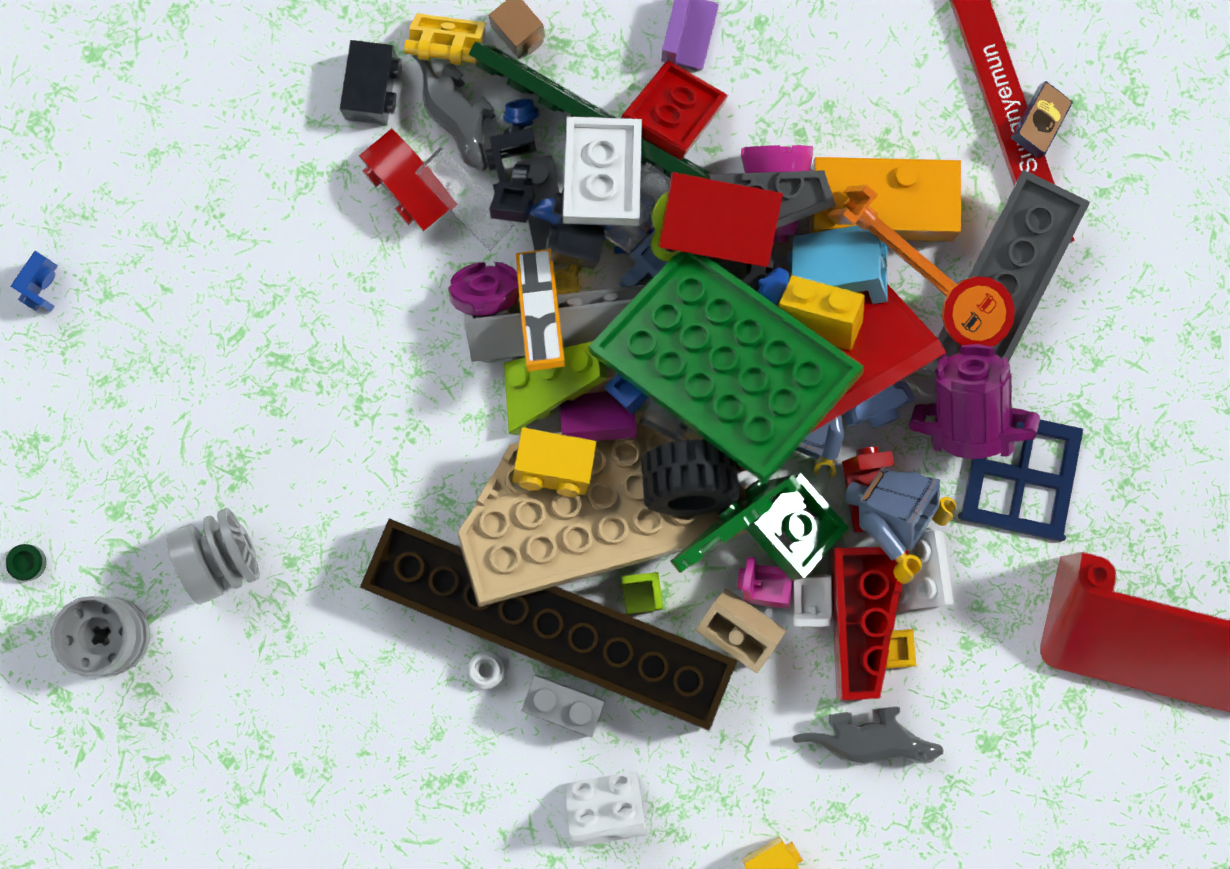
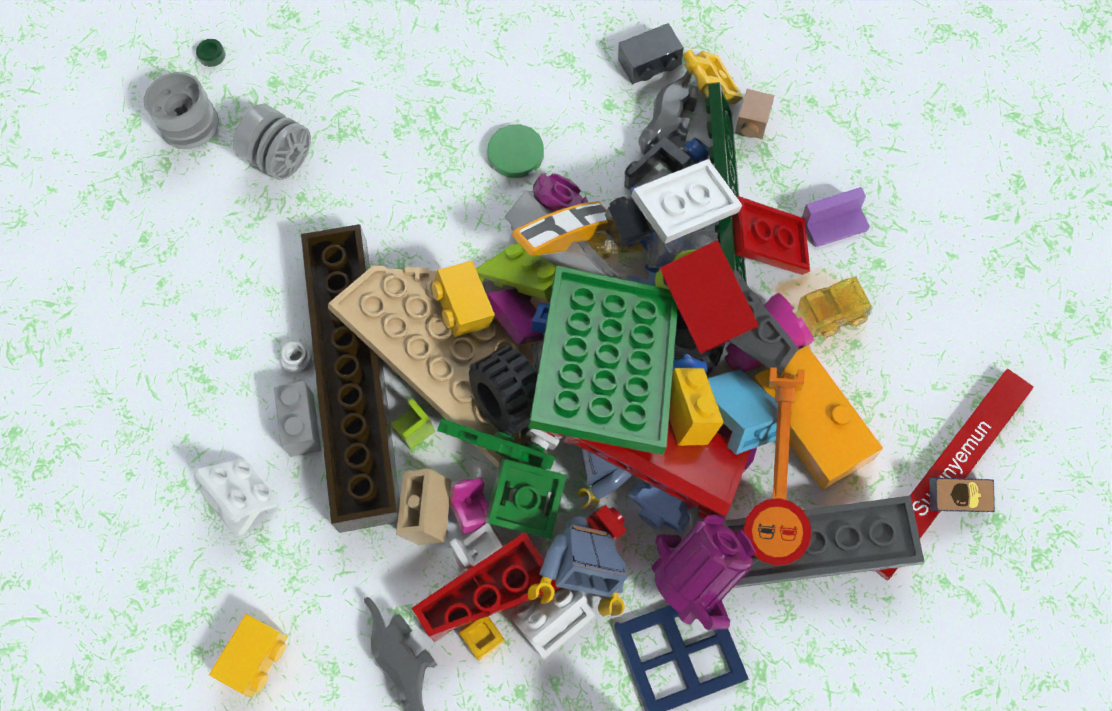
camera: 60 degrees right, 15 degrees down
(390, 299) = (515, 151): none -> tile
(394, 166) = (600, 110): red brick -> none
(463, 198) = (612, 147): clear tile -> none
(514, 199) = (633, 172): black plate -> none
(784, 100) = (835, 307): none -> clear yellow brick

